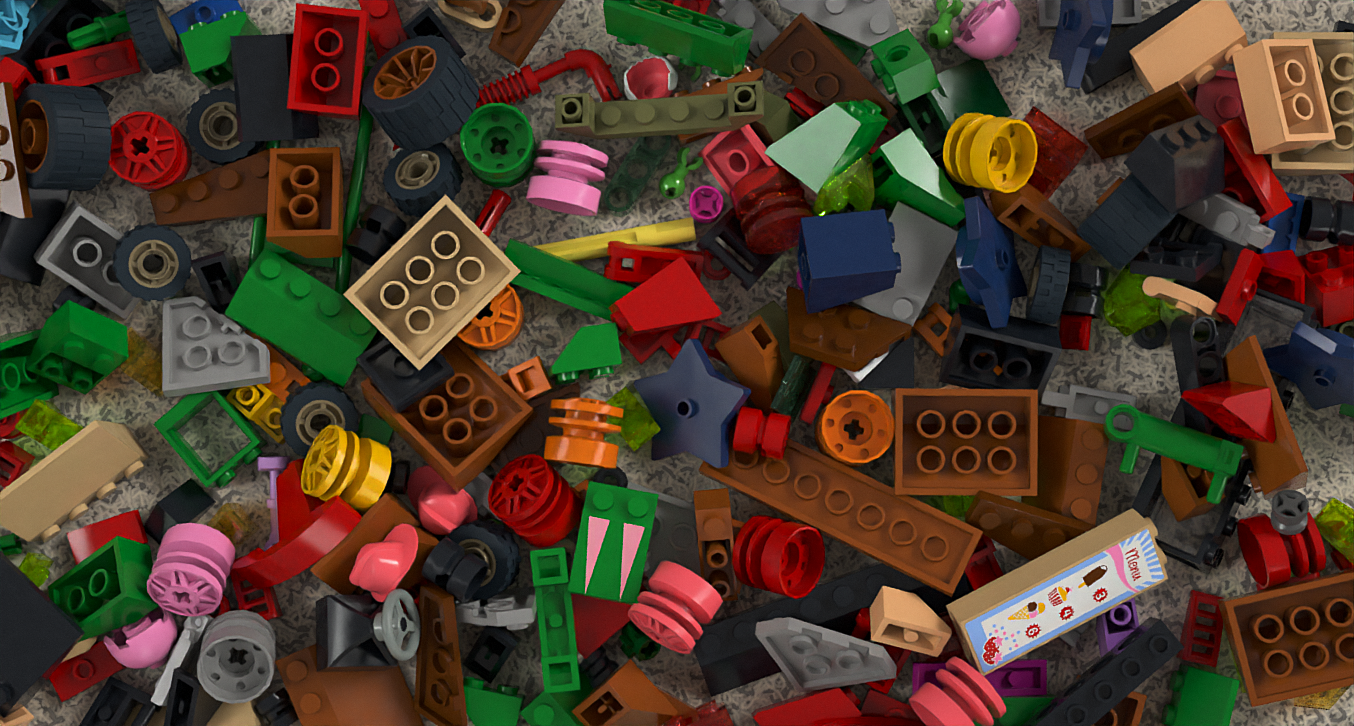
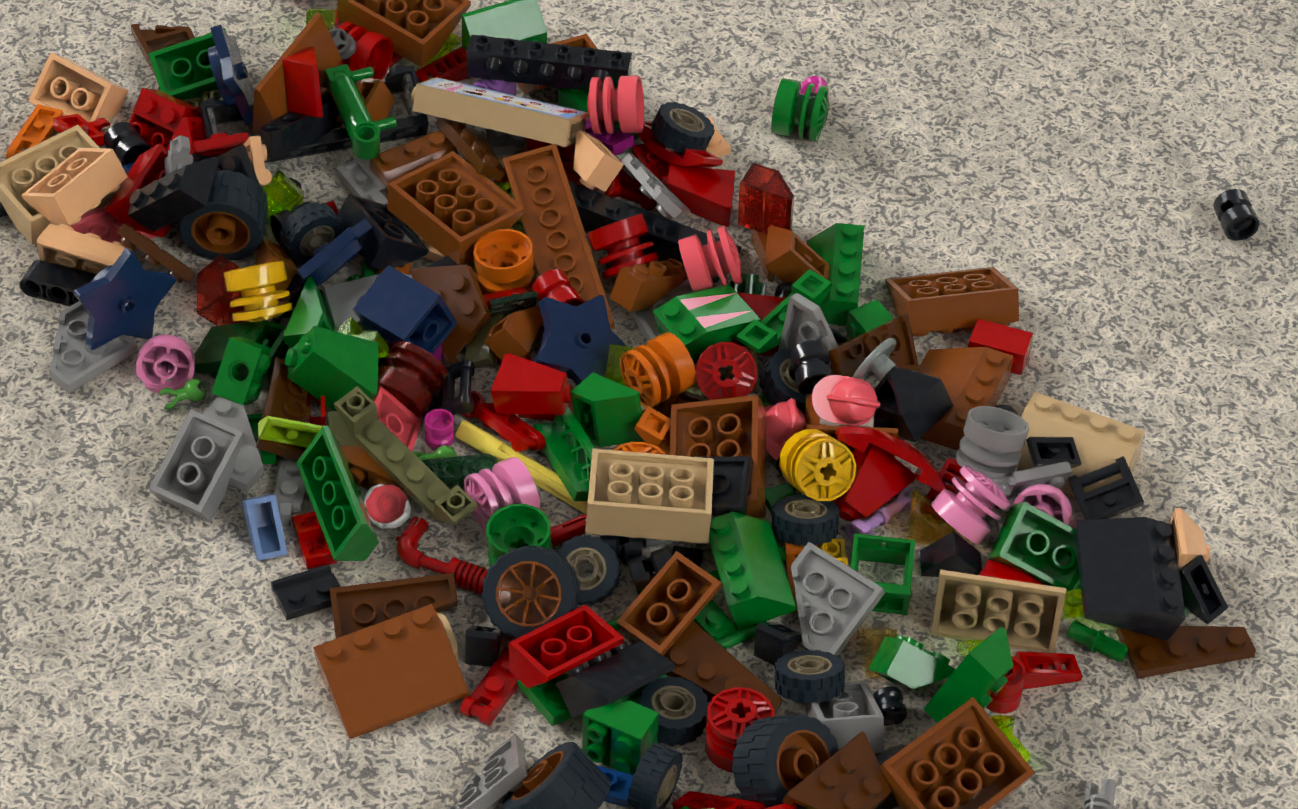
camera: 135 degrees left, 40 degrees down
(790, 48) = (287, 431): none -> lime slope

